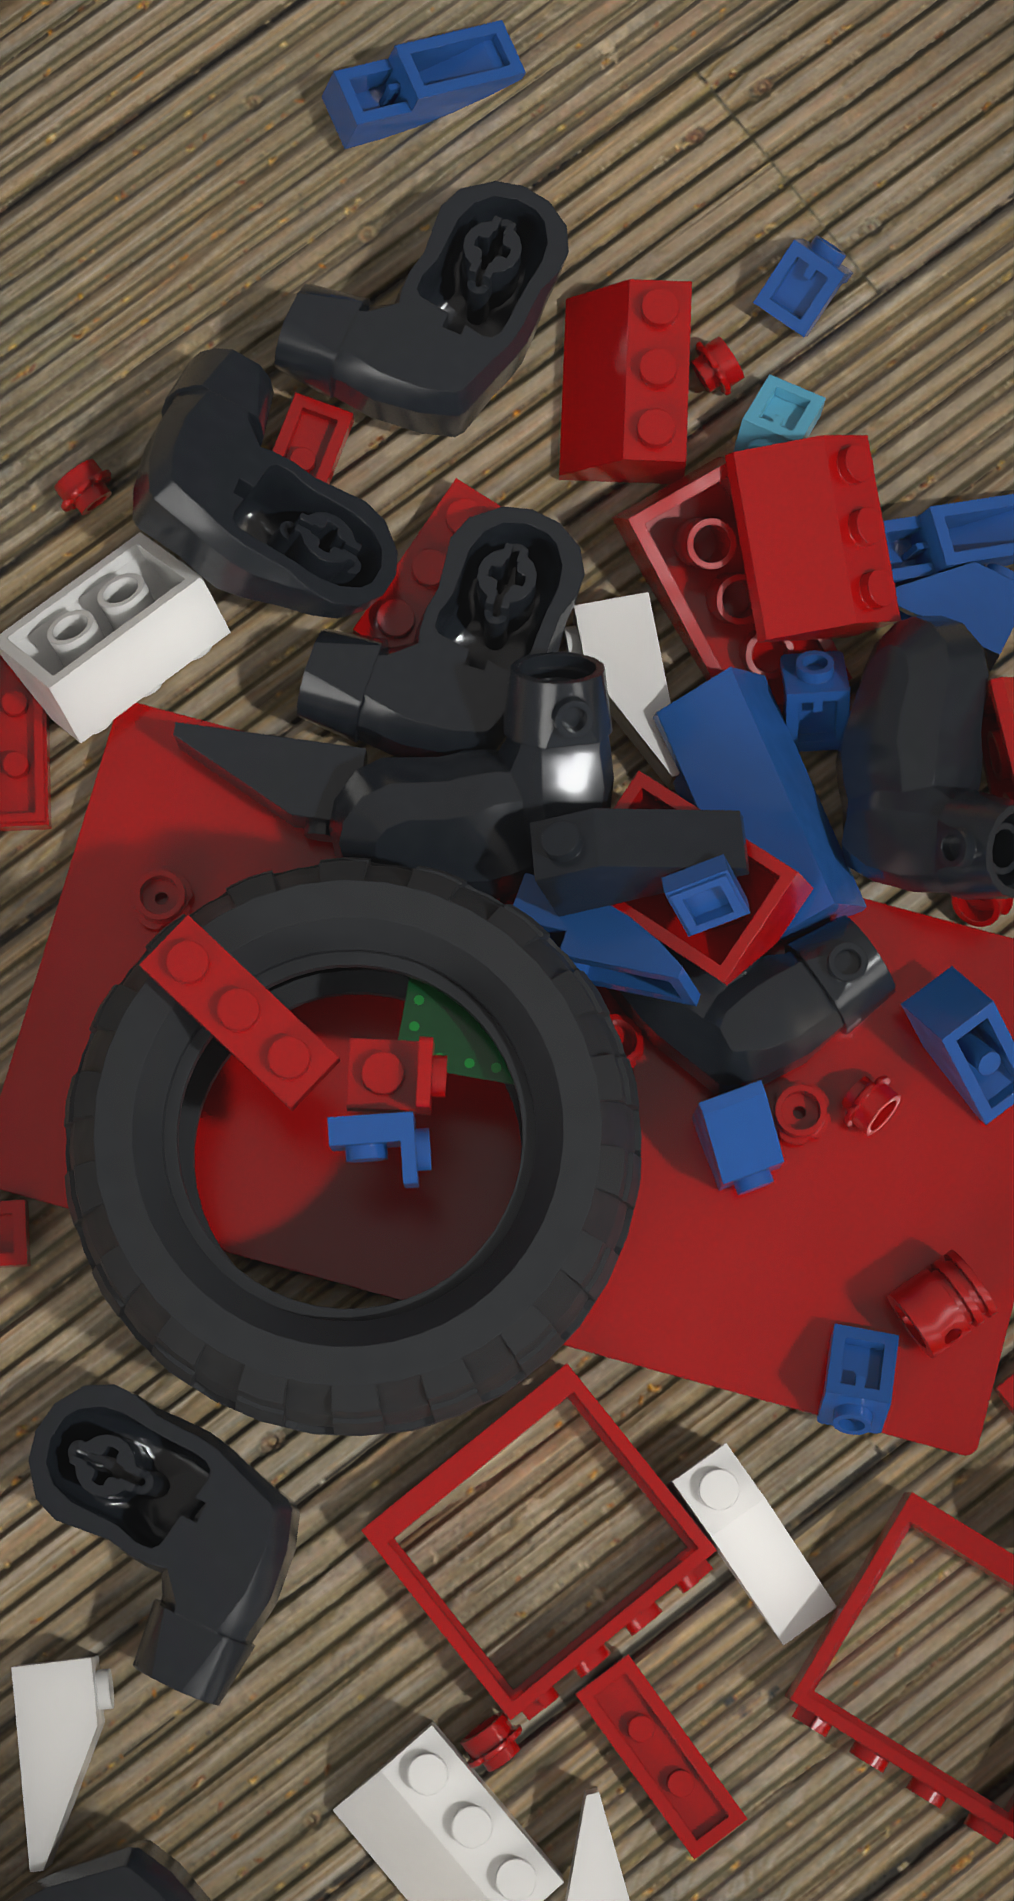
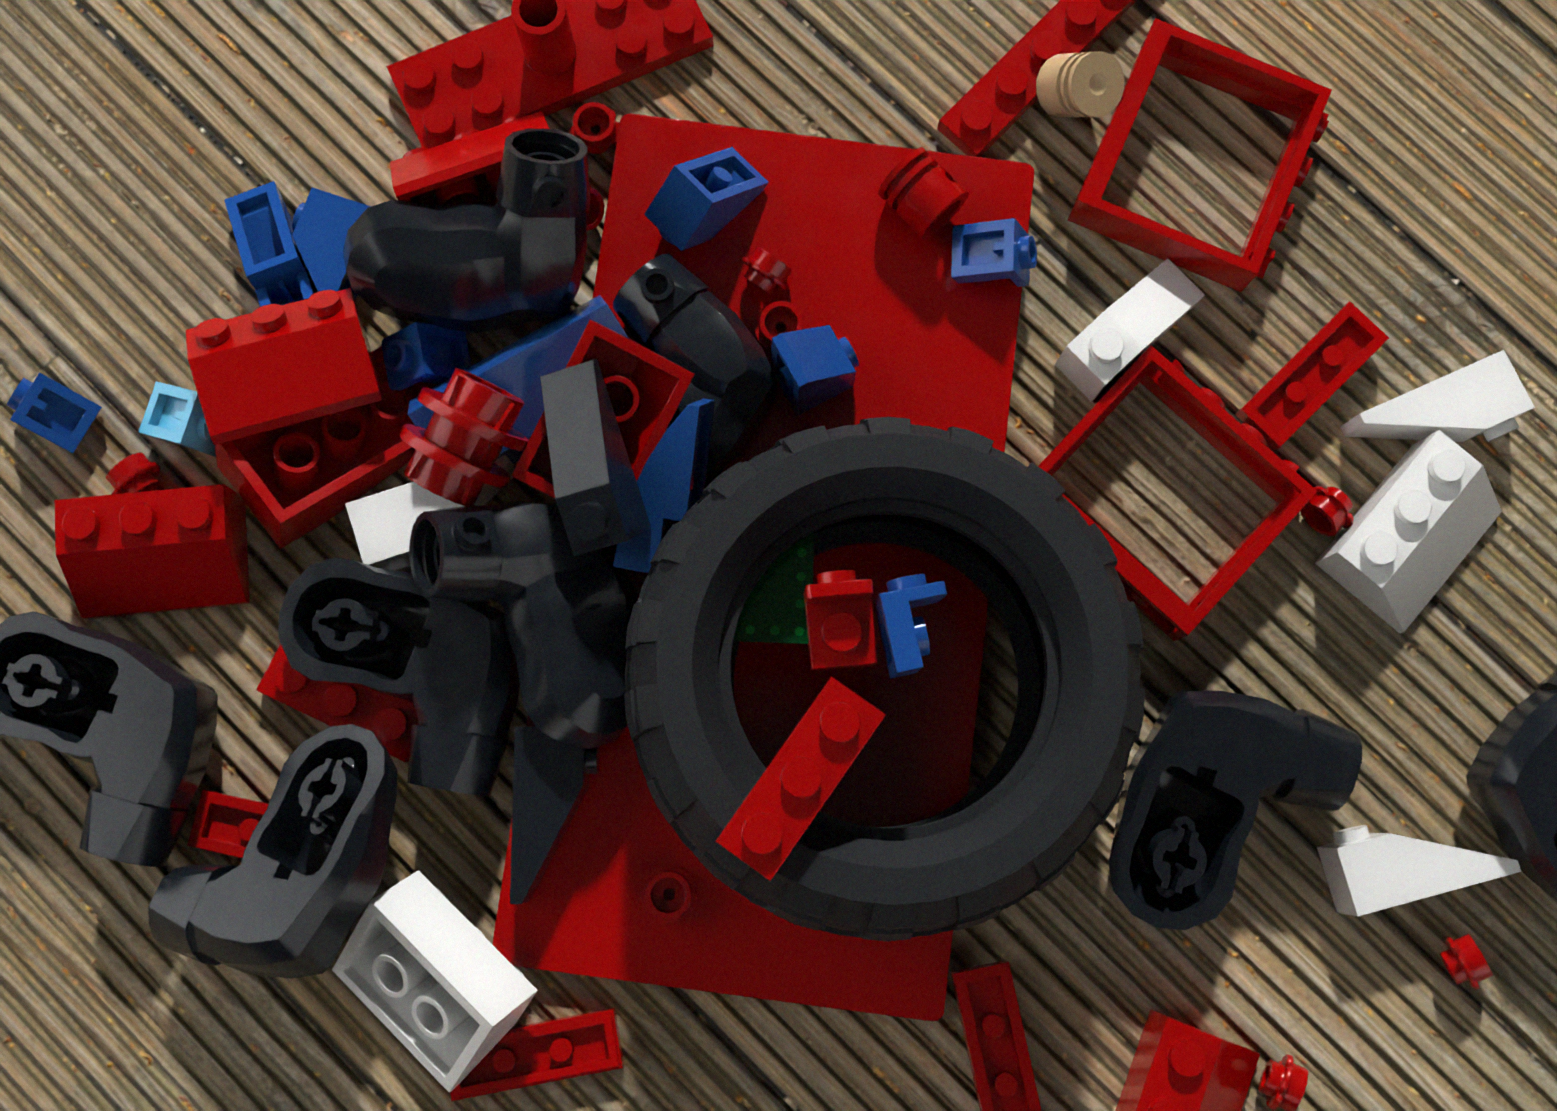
camera: 100 degrees left, 0 degrees up
(84, 487) = (294, 1029): red plate -> none
(687, 722) = (463, 438): none -> red piece
(705, 895) = (621, 392): blue tile -> none

